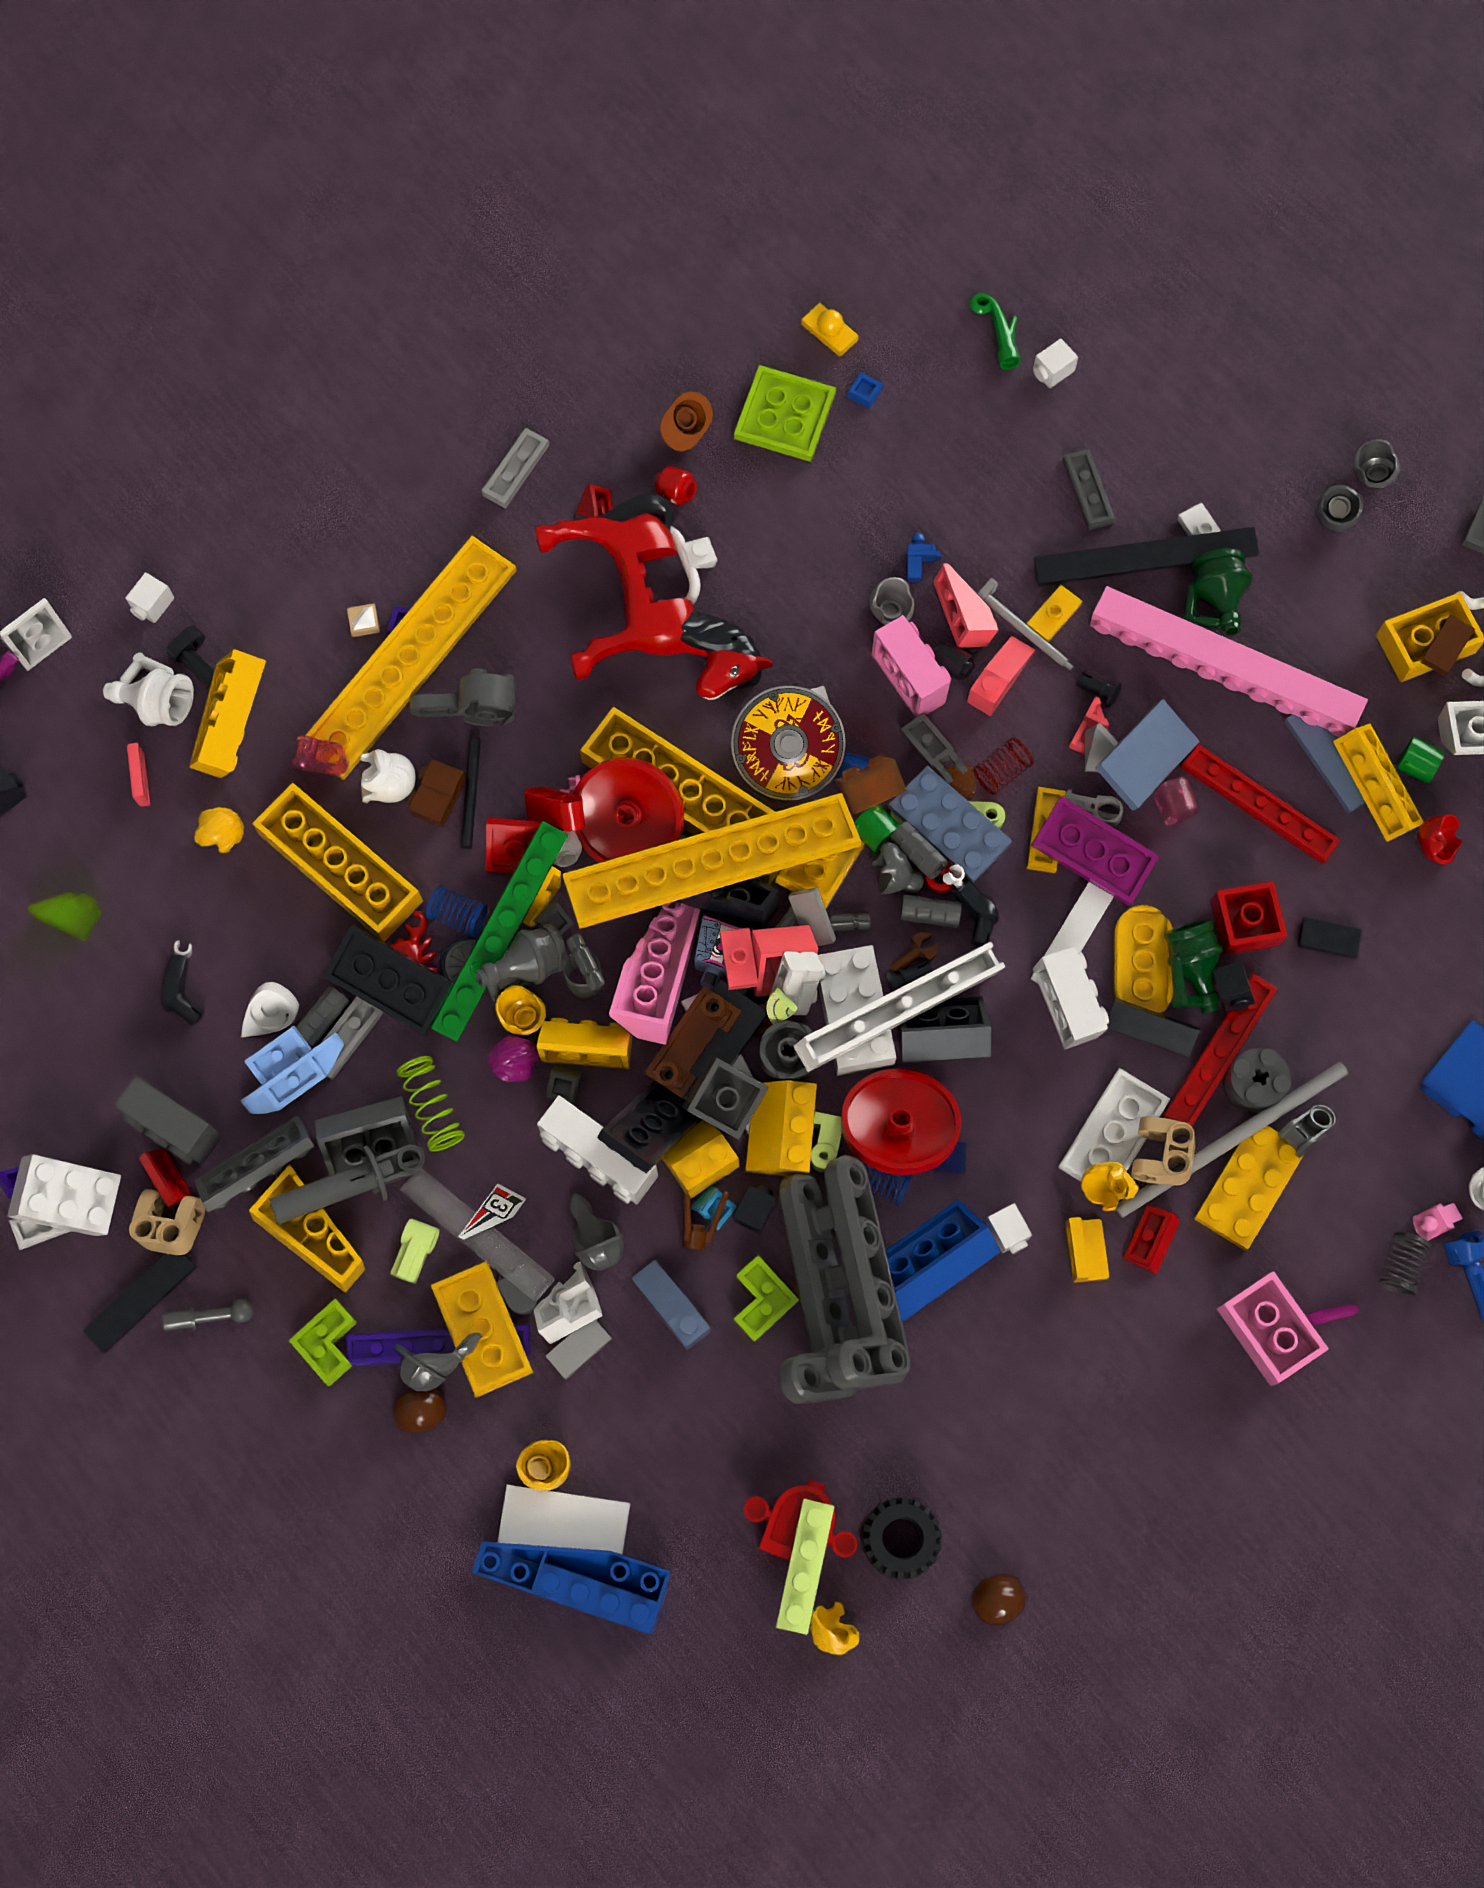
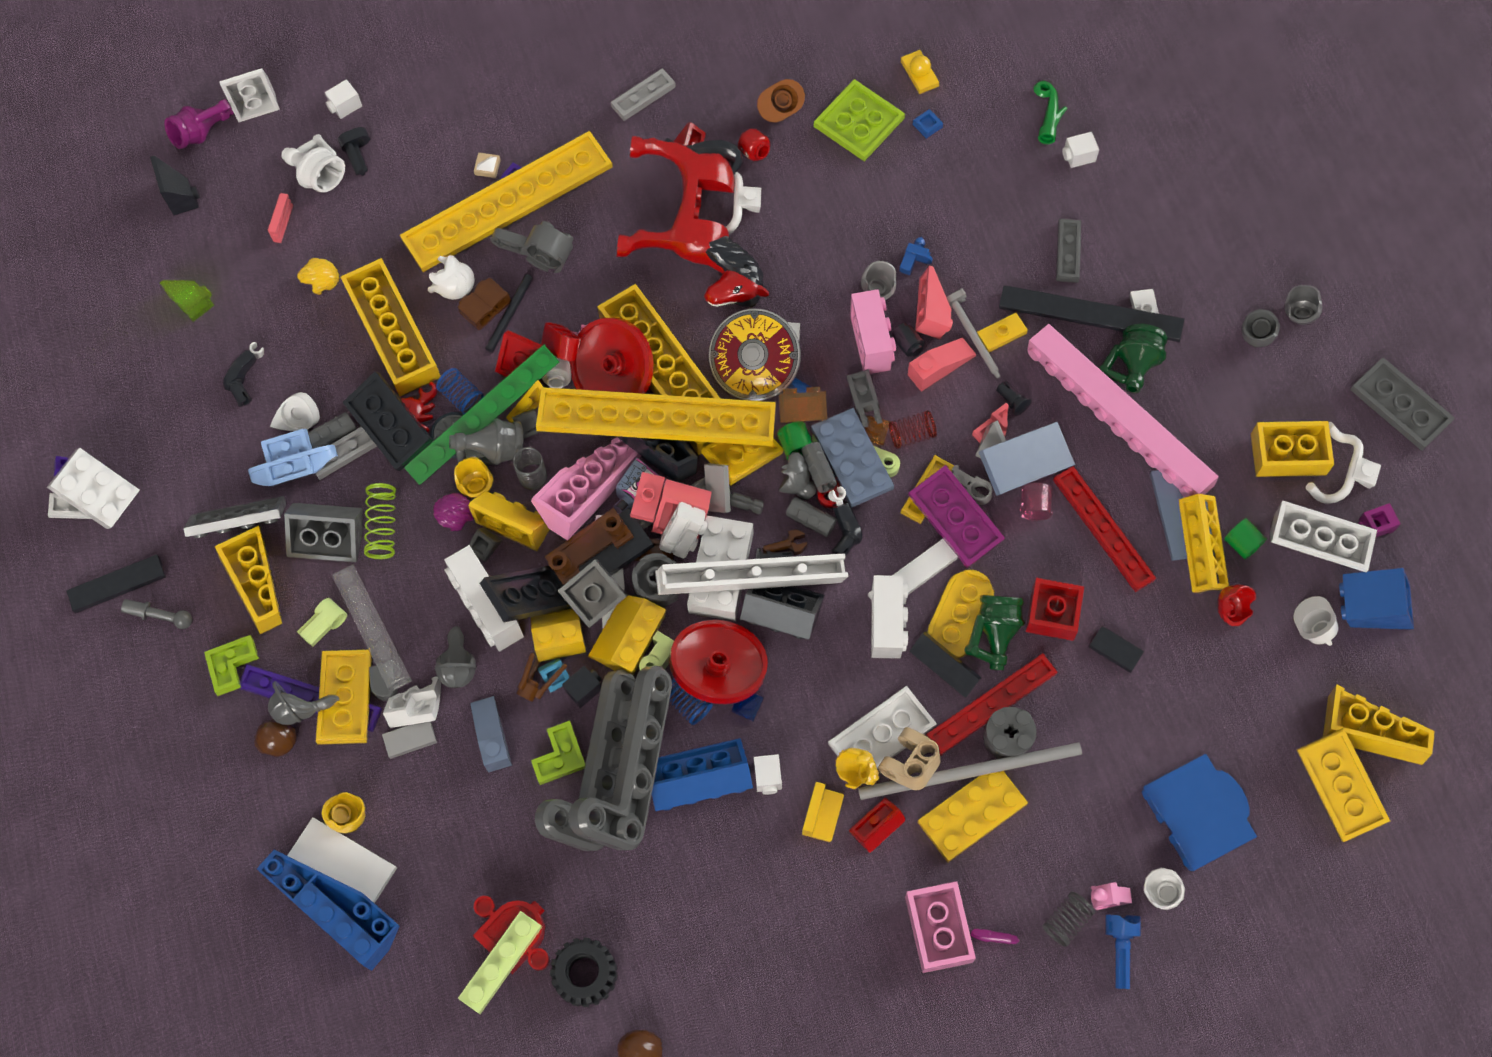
camera: 25 degrees right, 5 degrees down
(148, 1216) = (150, 542): tan piece -> none
(165, 1176) = (171, 505): red plate -> none
(167, 1122) = (187, 465): dark grey brick -> none
(226, 713) = (358, 196): yellow wedge -> none
(314, 754) = (407, 245): clear pink piece -> none
(375, 1175) = (314, 554): dark grey piece -> none
(497, 1208) = (393, 614): sticker -> none
(585, 961) = (531, 456): dark grey axle -> none
(779, 1006) = (661, 541): yellowish green tile -> none
(830, 1633) = (499, 1020): yellow hair -> none
(1234, 986) = (1020, 655): black brick -> none
(1308, 1129) = (1033, 786): dark grey piece -> none
(1447, 645) = (1299, 457): reddish brown tile -> none

